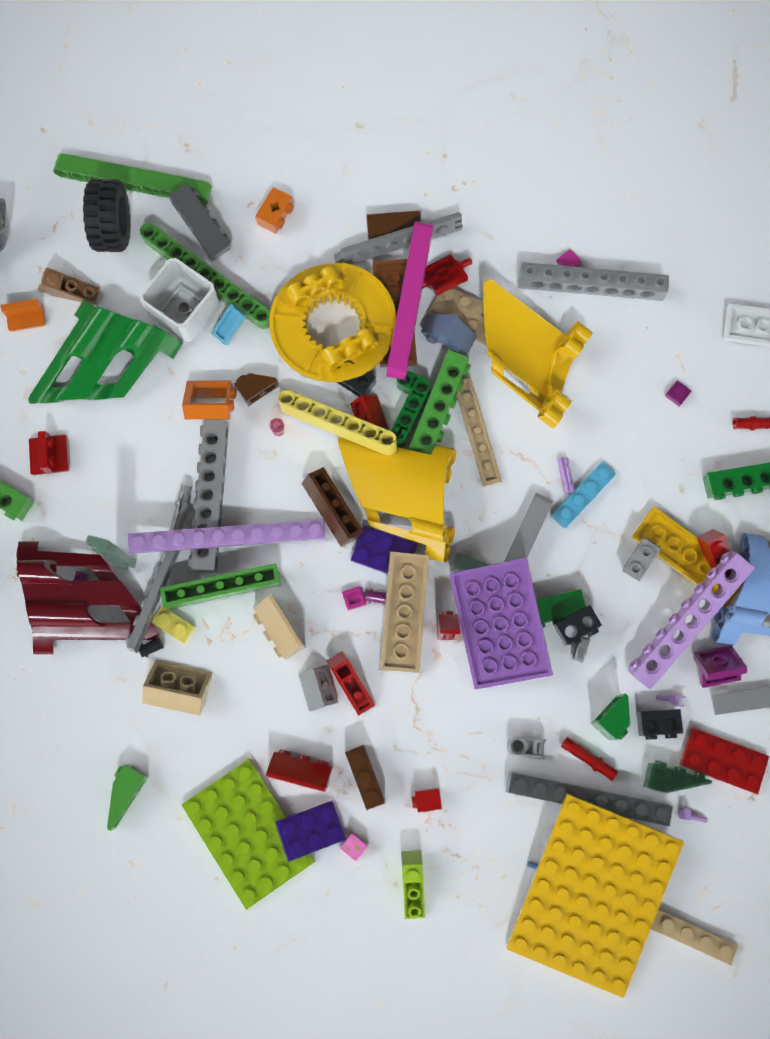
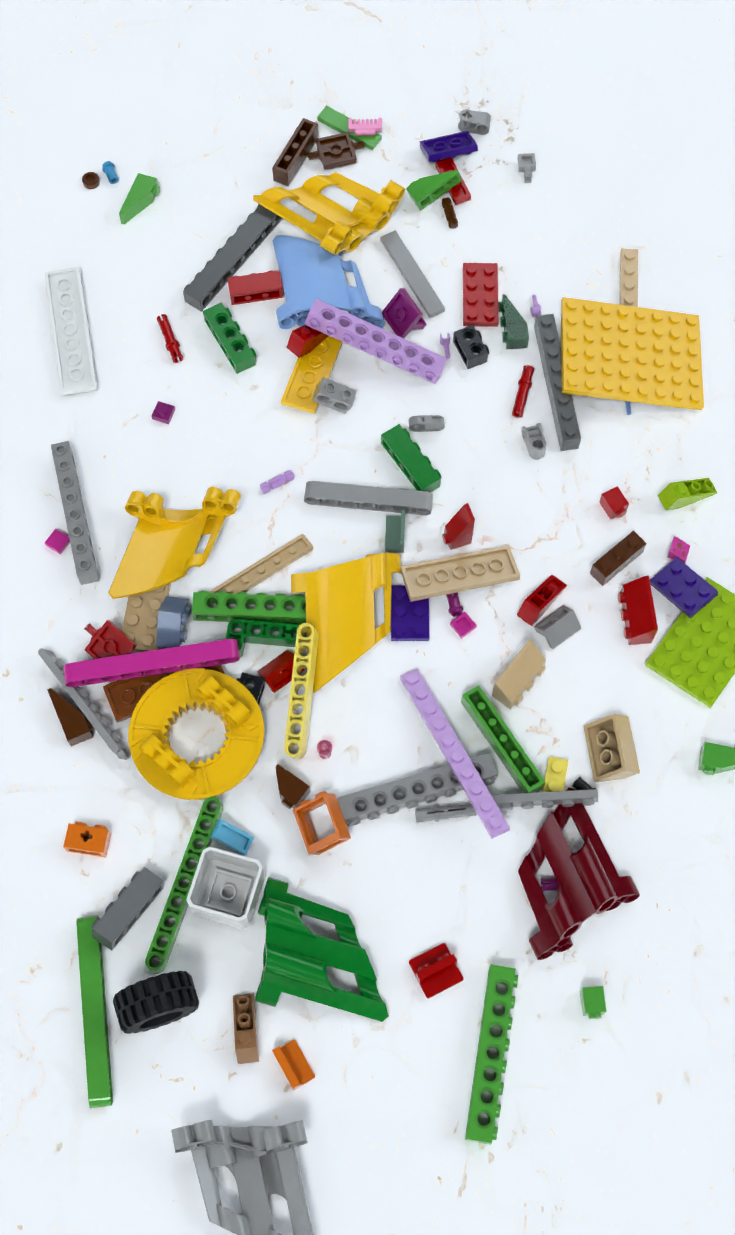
camera: 110 degrees left, 10 degrees down
(110, 552) = (519, 832): sand green plate -> none
(332, 507) = (386, 668): reddish brown brick -> none
(501, 623) = (437, 484): medium lavender plate -> none
(575, 621) = (414, 426): black brick -> none
(583, 495) = (287, 460): medium azure plate -> none
(614, 718) = (482, 378): green slope -> none

